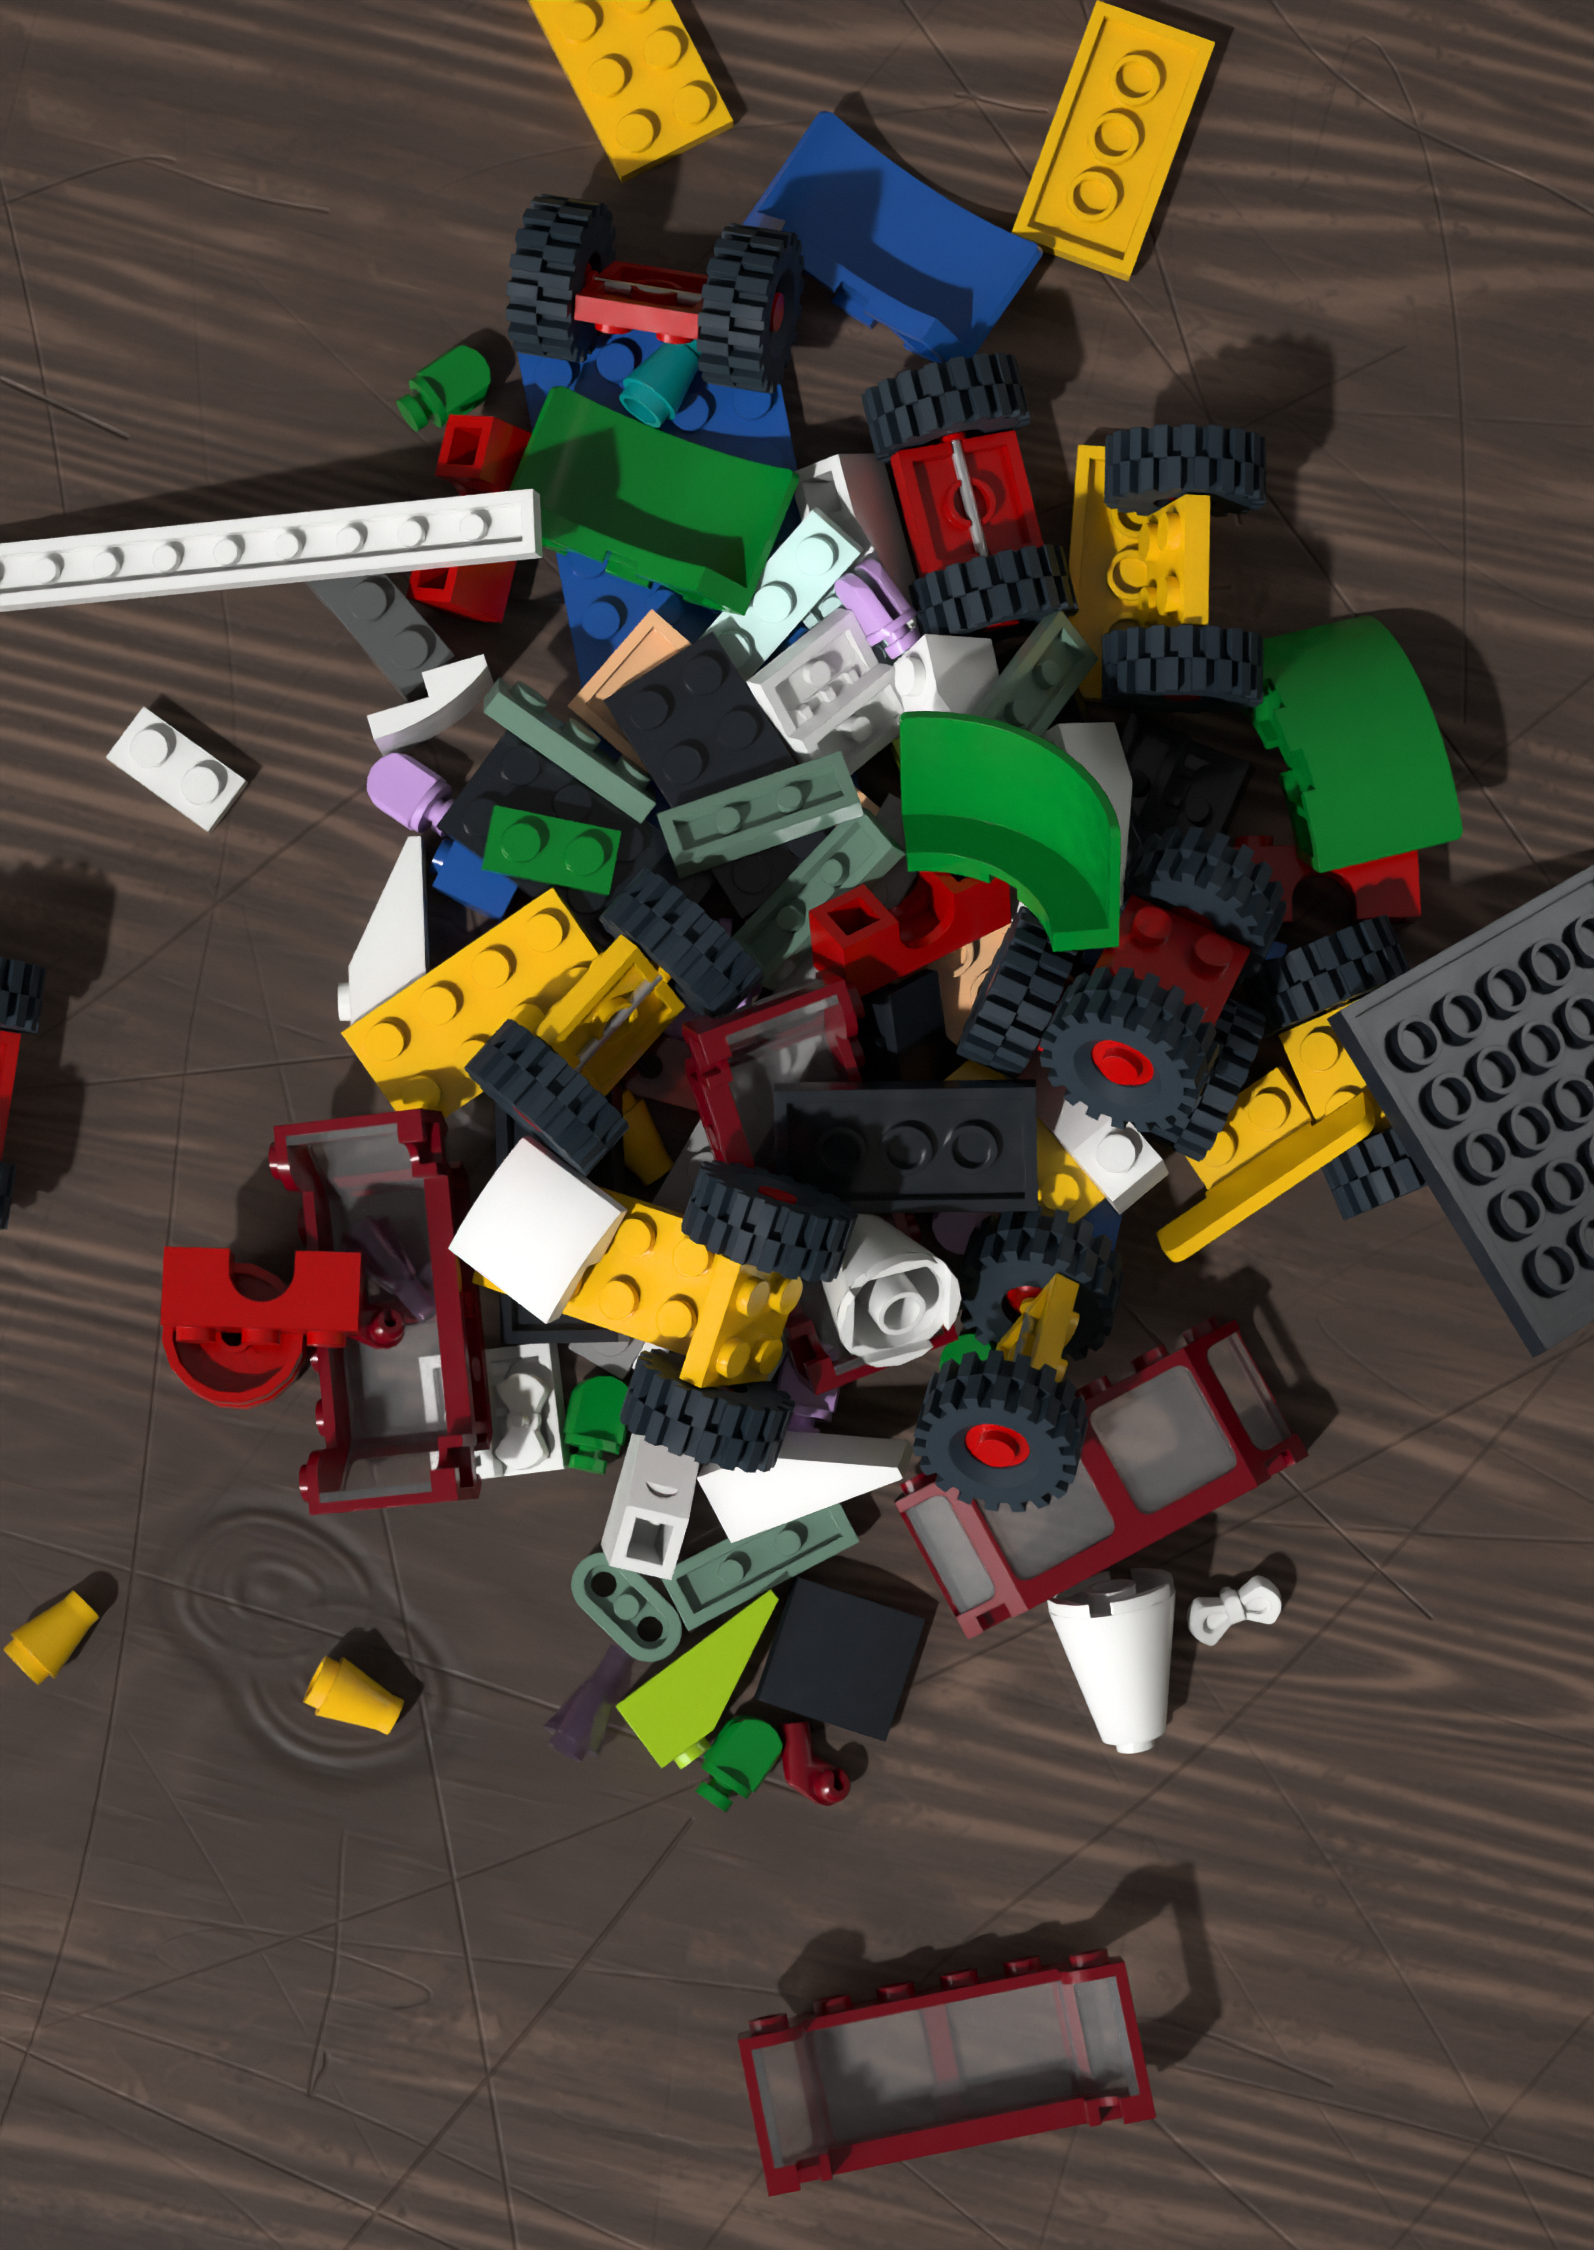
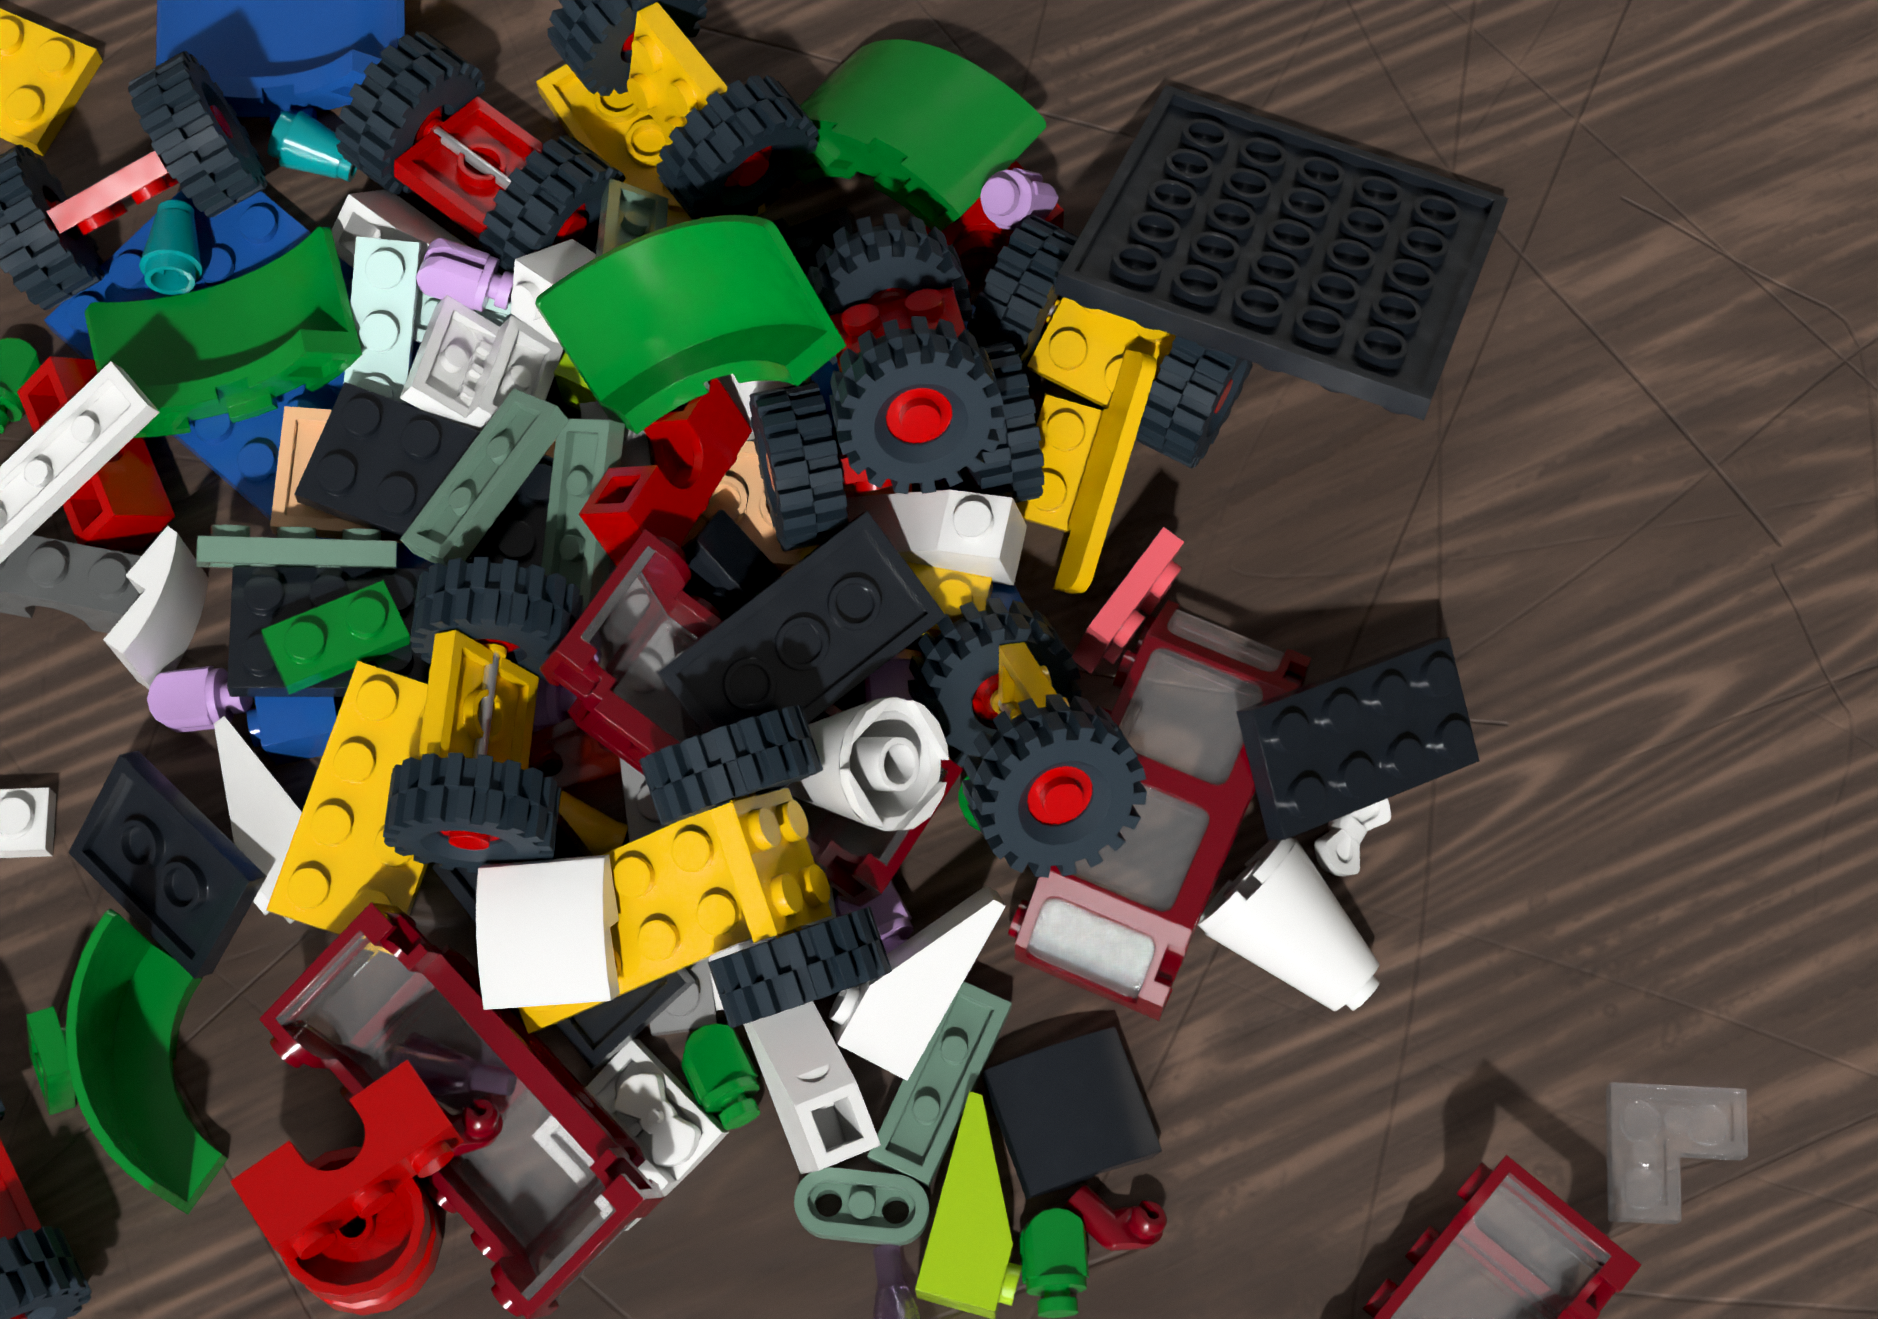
camera: 35 degrees left, 15 degrees down
(100, 1024) = (49, 1059): none -> green plate
(148, 1074) = (121, 1056): none -> green panel
(292, 925) = (166, 864): none -> black plate
(847, 357) = (308, 147): none -> teal cone
(1178, 1304) = (1141, 589): none -> coral plate
(1267, 2017) = (1656, 1127): none -> clear plate
(1288, 1553) = (1357, 737): none -> black plate
(1373, 887) = (1014, 196): none -> lavender arm

